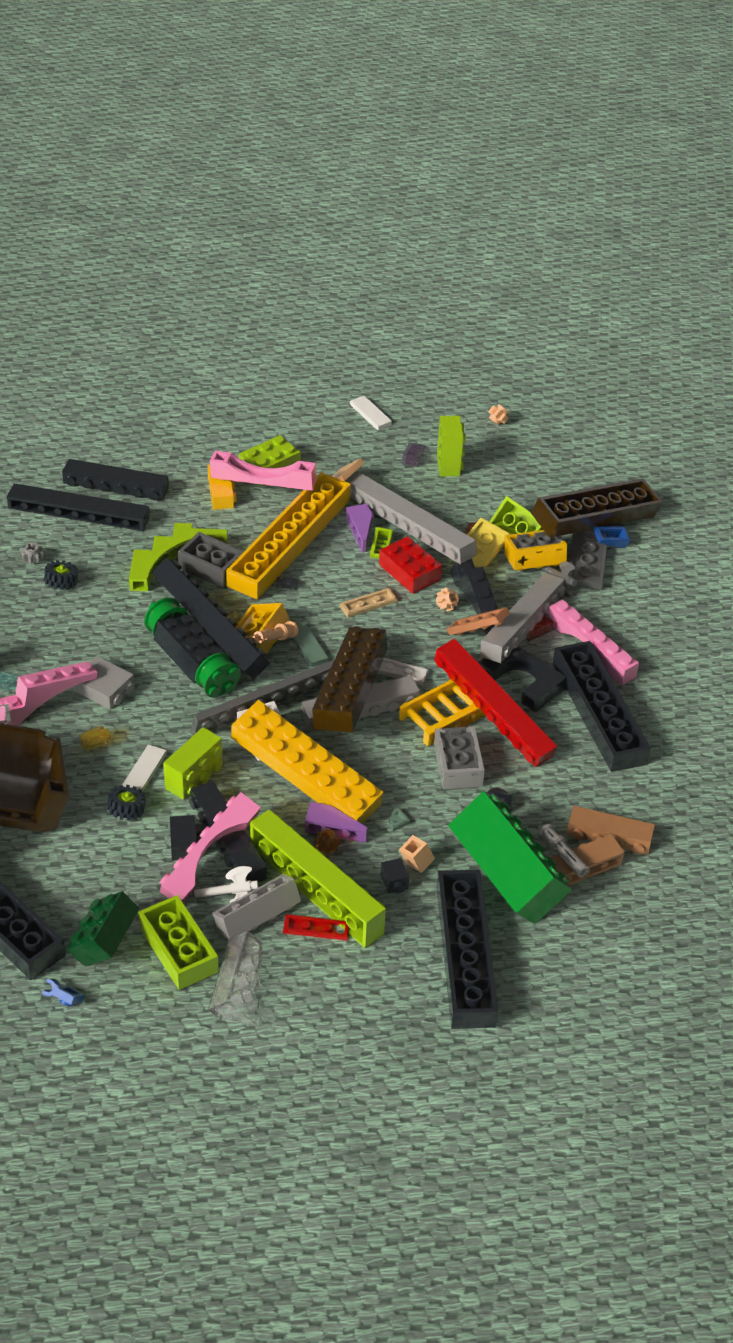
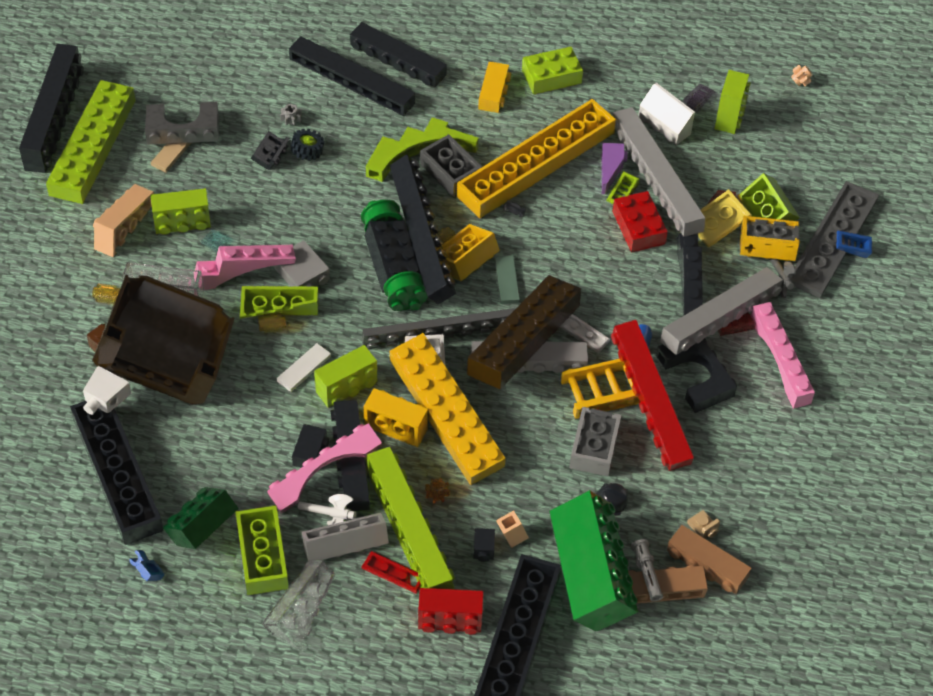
camera: 20 degrees right, 10 degrees up
(25, 589) = (269, 150): none -> black bracket
(104, 711) = (278, 299): none -> lime wedge
(126, 802) = (273, 396): black wheel -> none
(230, 467) = (562, 98): bright pink arch -> none
(263, 784) = (396, 417): none -> yellow brick
(280, 632) = (481, 262): light nougat pin -> none
(326, 816) = (444, 465): medium lavender slope -> none
(346, 471) = (619, 103): light nougat tile -> none
(368, 602) = (583, 250): tan tile -> none
(371, 412) = (676, 40): white tile -> none
(392, 941) = (450, 610): none -> red brick
(395, 470) = (667, 114): none -> white slope
(398, 819) = (513, 487): sand green tile -> none
(447, 599) = (659, 269): light nougat gear -> none
(478, 621) = (674, 304): nougat plate -> none
(592, 802) = (704, 525): none -> tan bracket
(596, 507) = (848, 210): dark brown brick -> none
(601, 706) = (758, 427): black brick -> none

